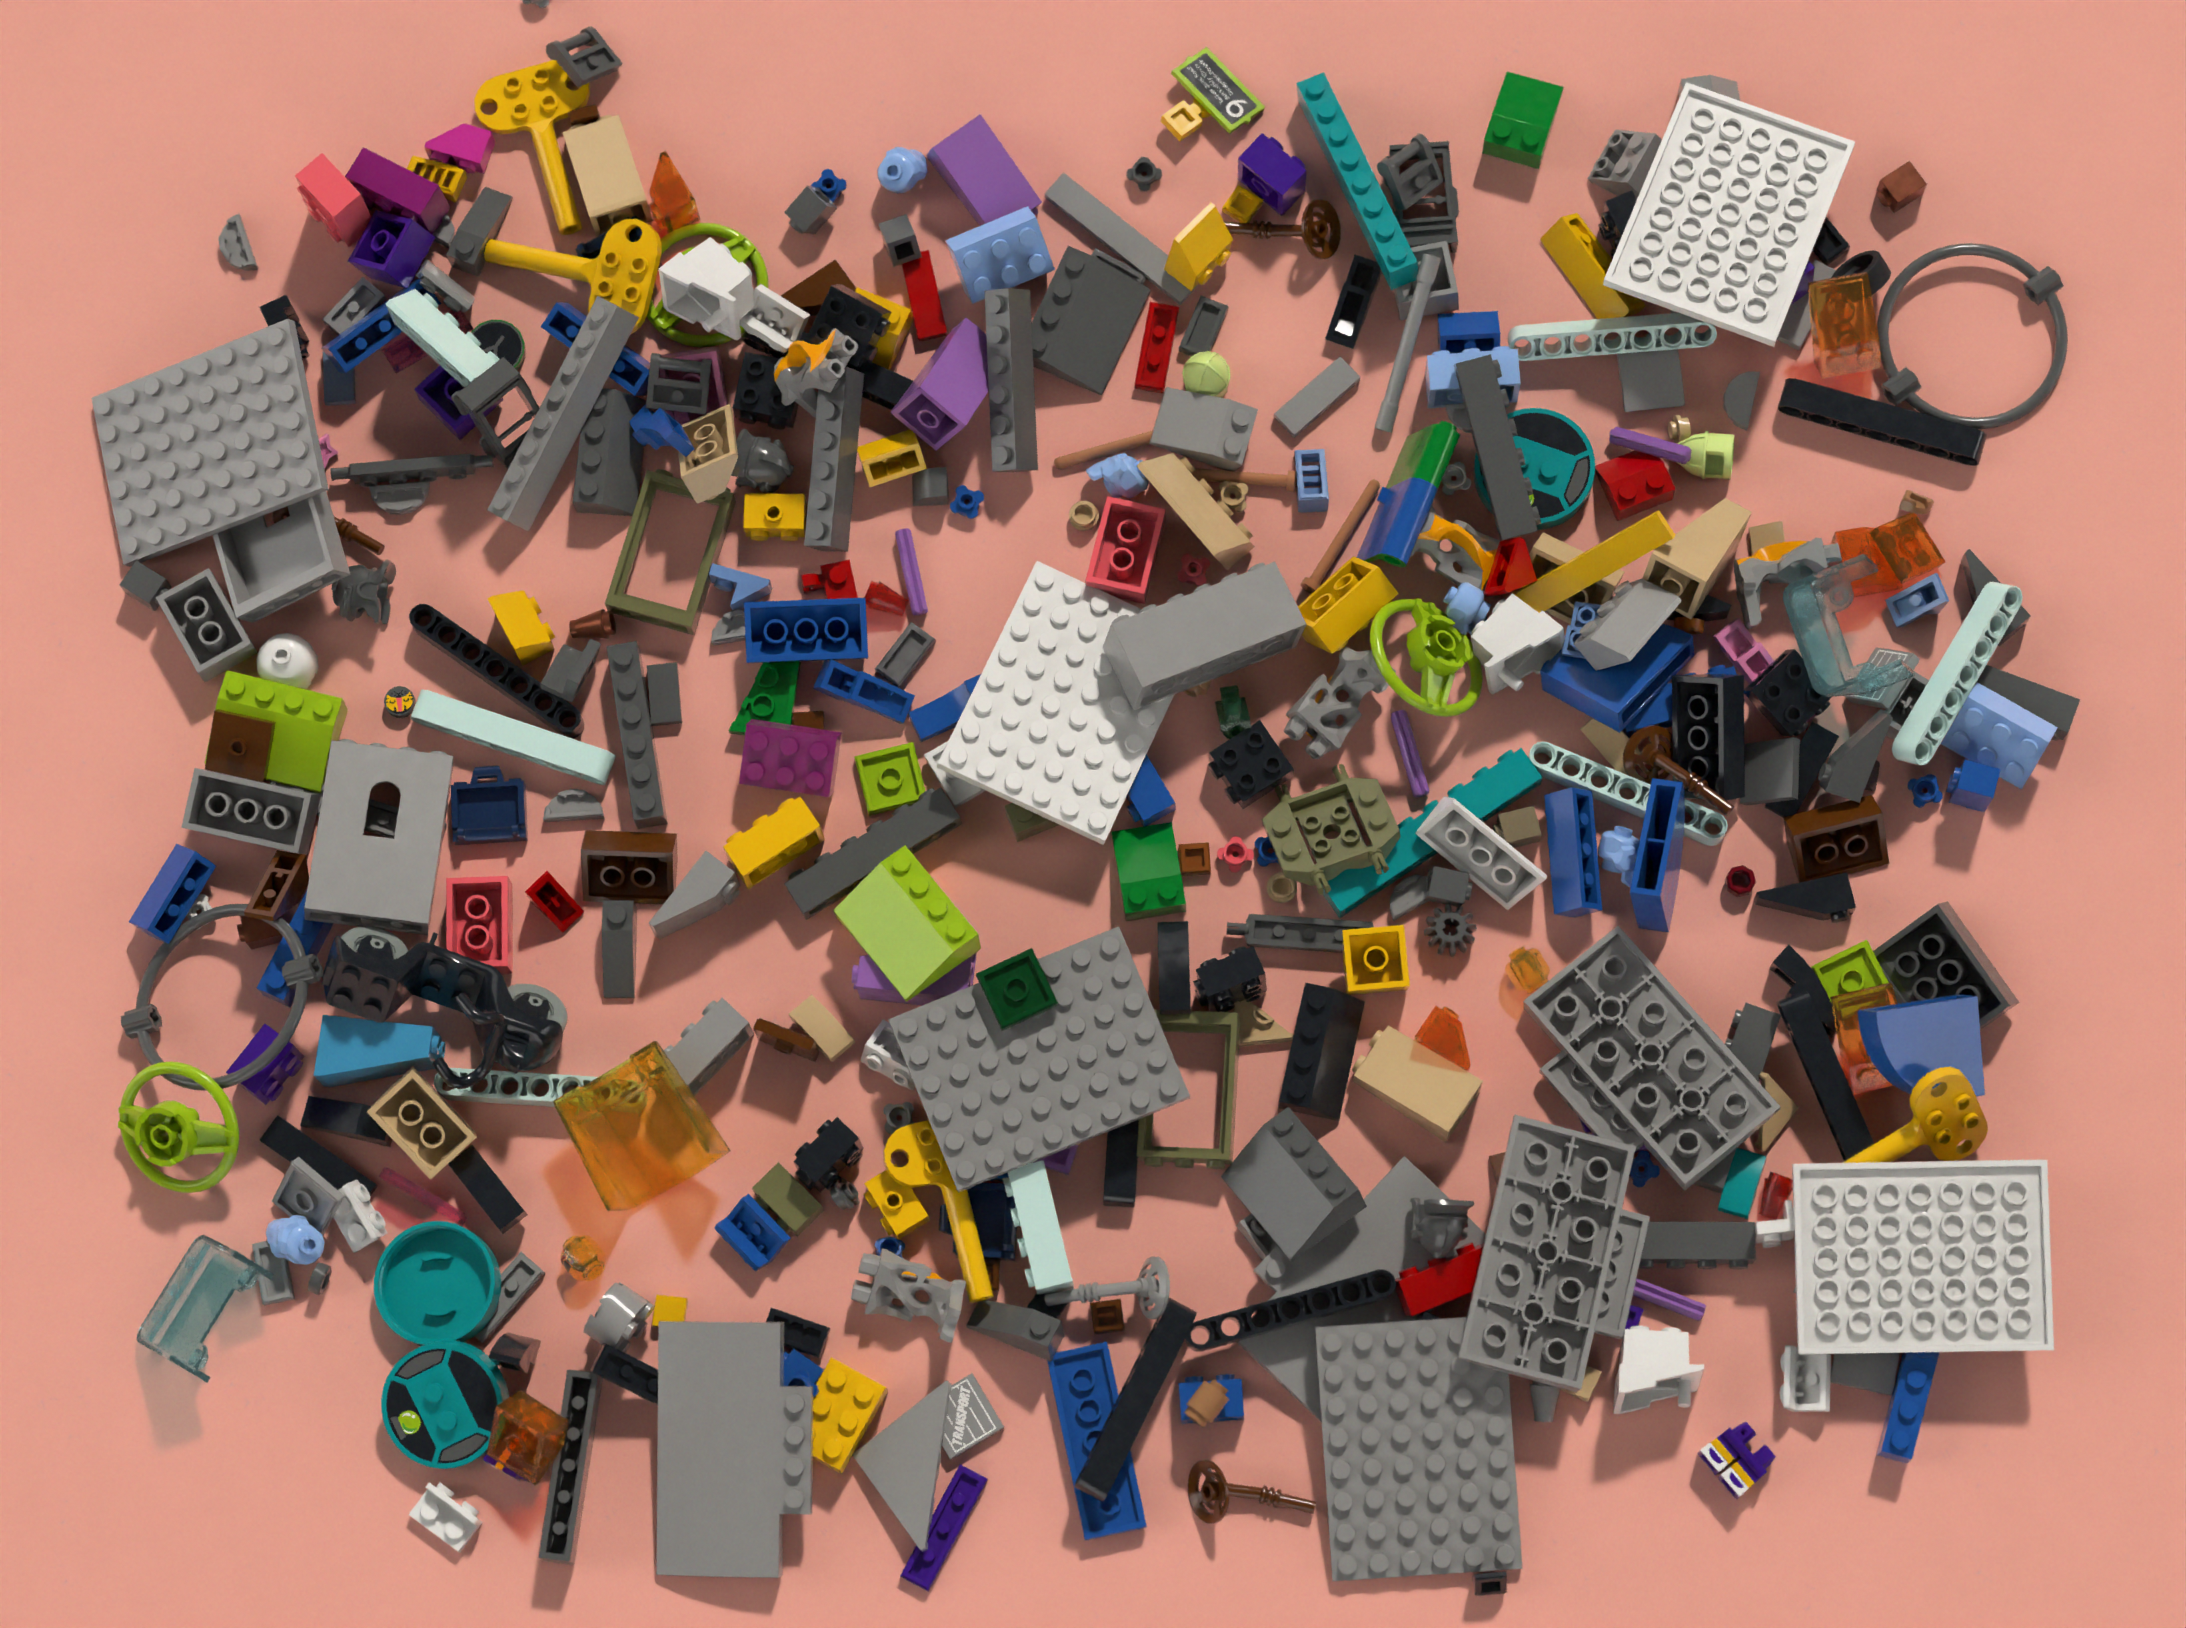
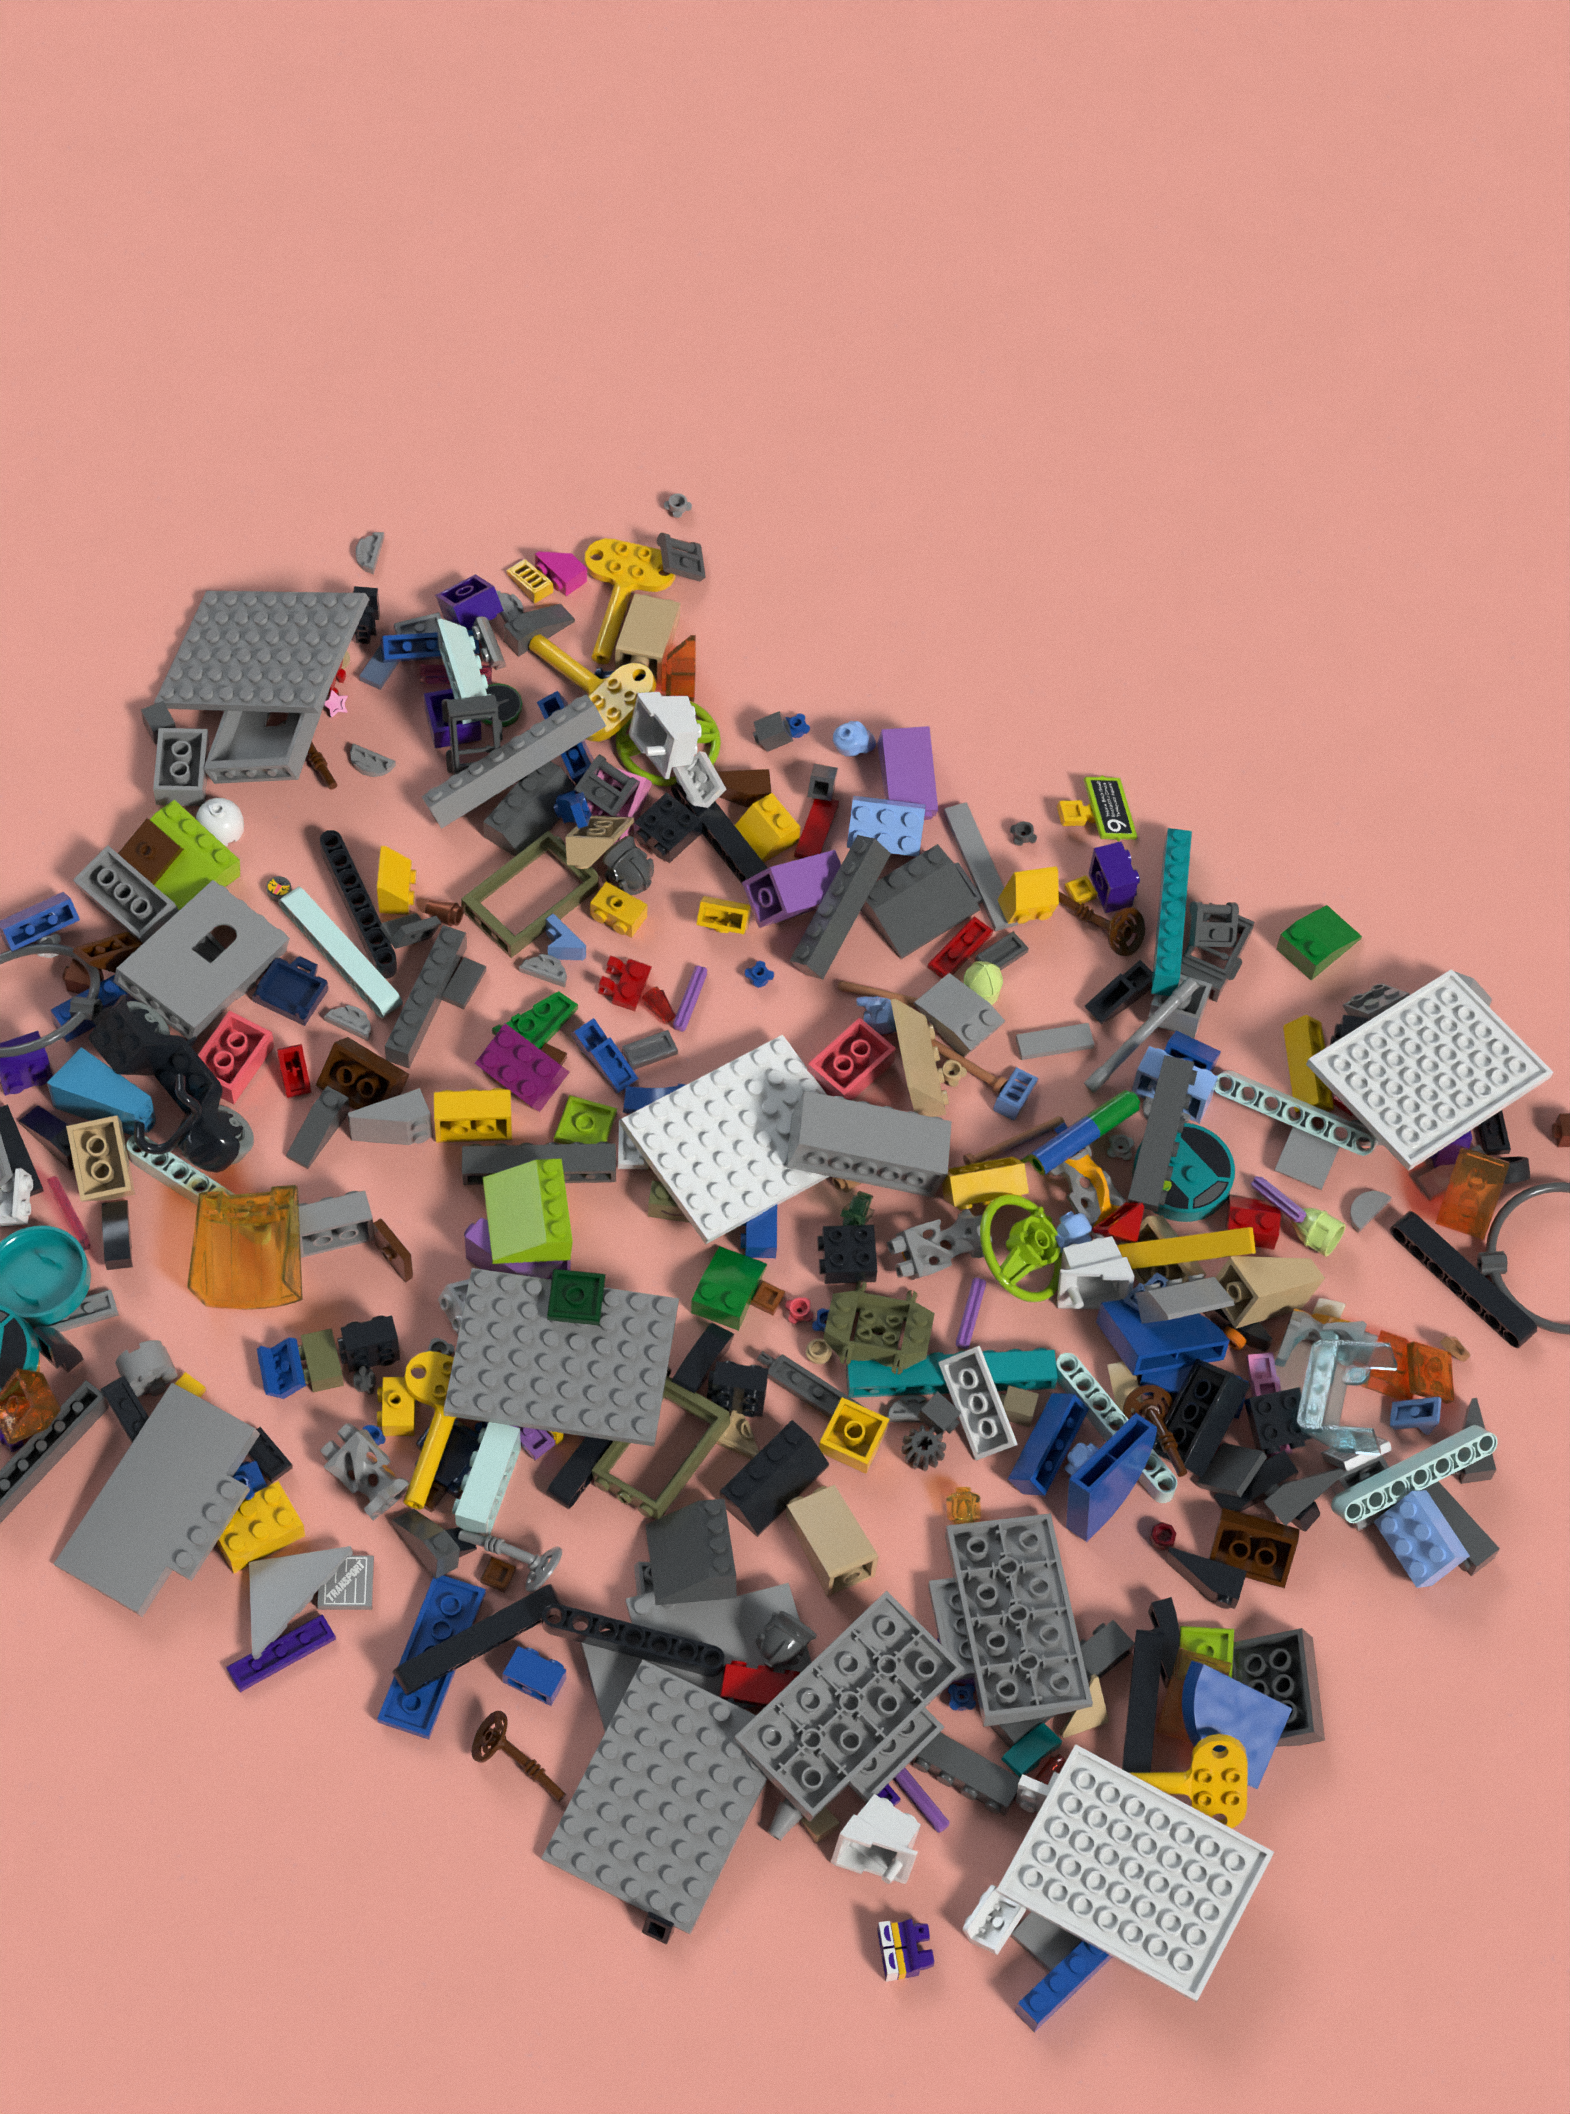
camera: 20 degrees right, 15 degrees down
(333, 200) = (449, 548): coral brick -> none
(364, 591) = (304, 804): dark grey helmet -> none
(397, 190) = (496, 565): magenta brick -> none
(401, 470) = (390, 747): dark grey plate -> none
(583, 1258) = (151, 1317): clear yellow head -> none
(584, 115) = (657, 591): reddish brown tile -> none
(805, 630) = (589, 990): blue slope -> none
(812, 367) = (704, 817): light grey hips -> none
(822, 1027) = (424, 1259): tan slope -> none
(834, 464) = (682, 892): dark grey brick -> none
(852, 316) = (749, 810): black brick -> none
(930, 487) = (741, 951): dark grey brick -> none
(1084, 515) = (835, 1026): tan plate -> none
(1197, 578) = (893, 1099): coral plate -> none
(1206, 1402) = (528, 1668): medium nougat brick -> none
(1445, 1036) = (871, 1512): clear orange slope -> none
(1679, 428) = (1307, 1200): tan plate -> none
(1928, 782) = (1346, 1545): blue plate -> none
(1973, 785) = (1380, 1563): blue brick -> none

